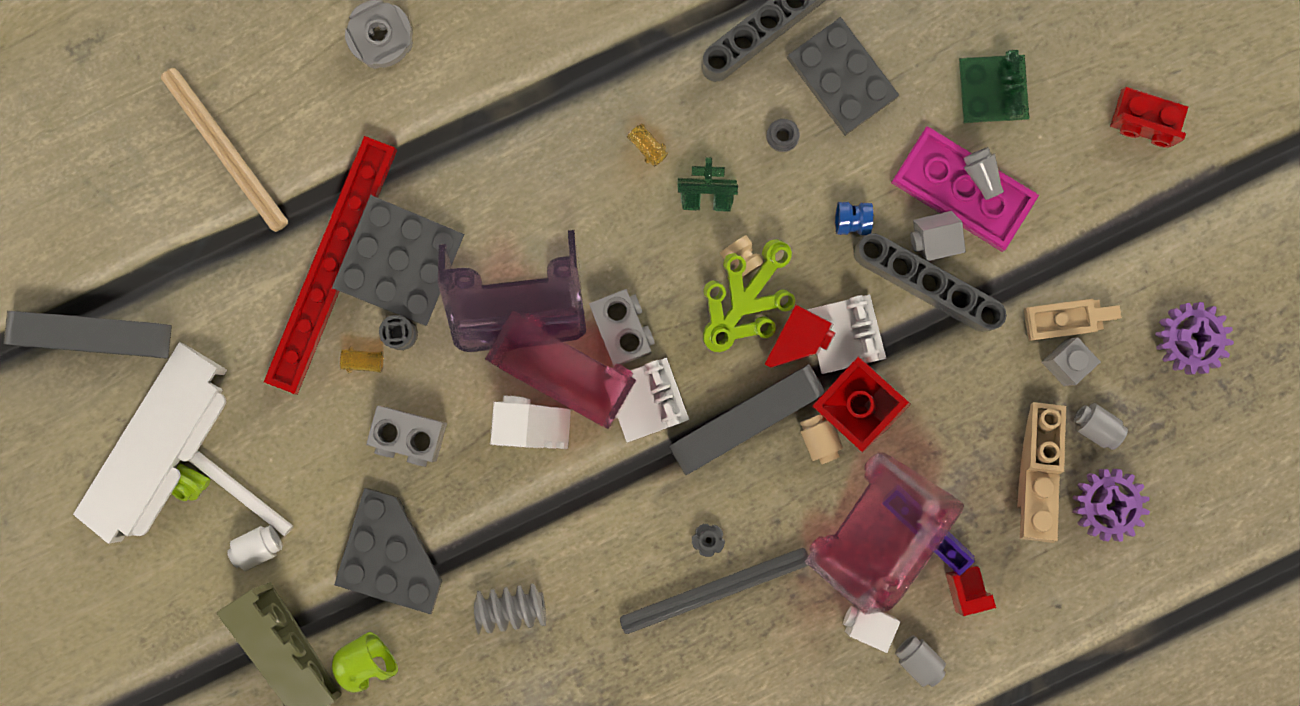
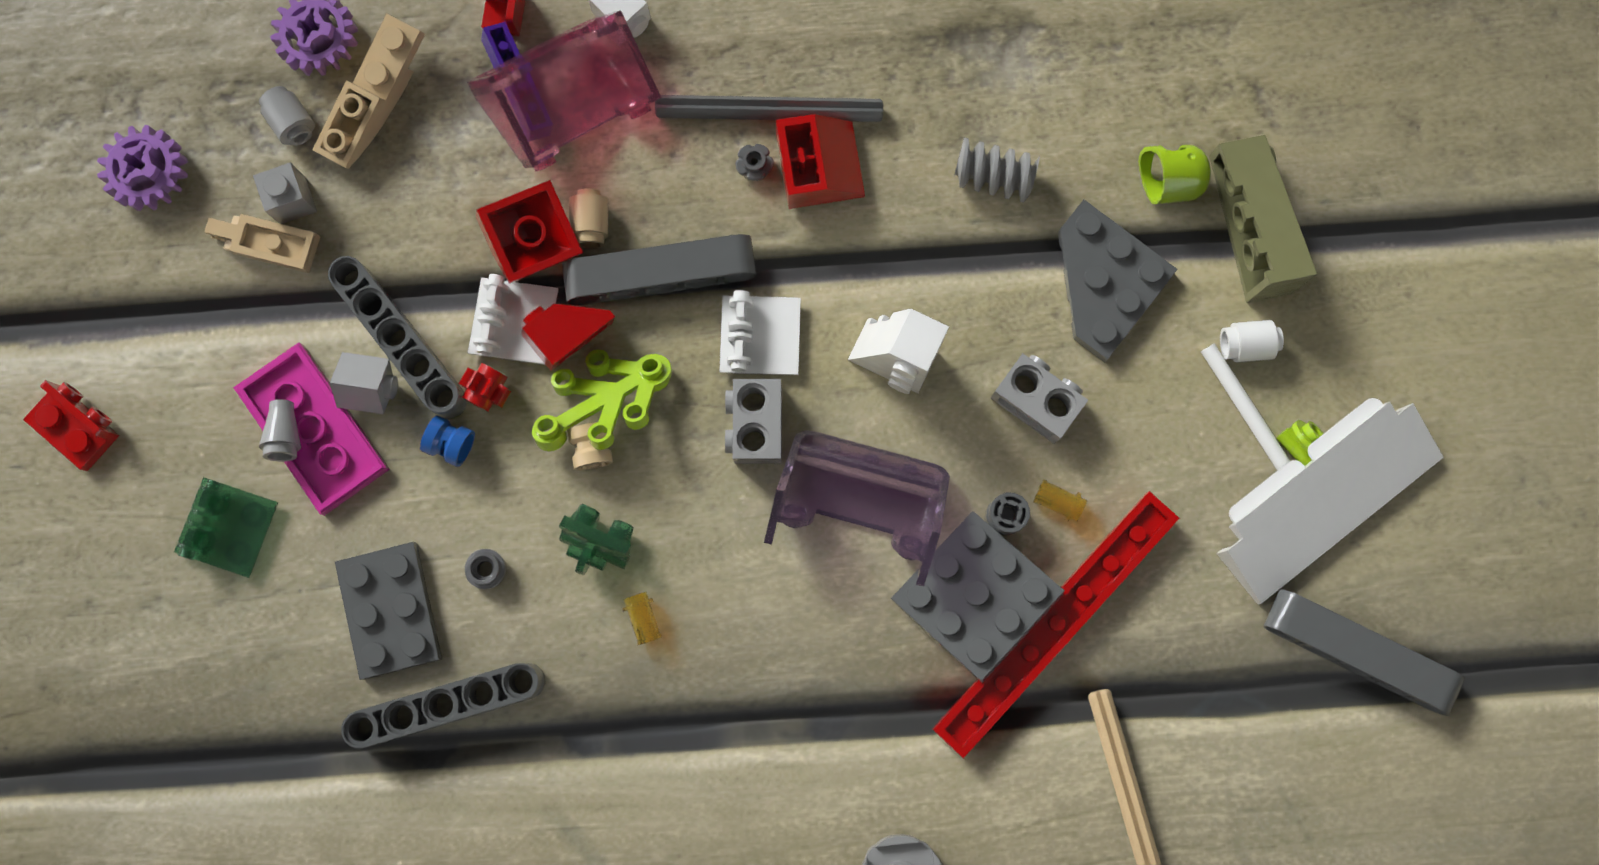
camera: 155 degrees left, 5 degrees down
(561, 370) = (835, 387): clear pink windscreen -> none
(655, 559) = (818, 160): none -> red slope
(843, 270) = (484, 387): none -> red gear

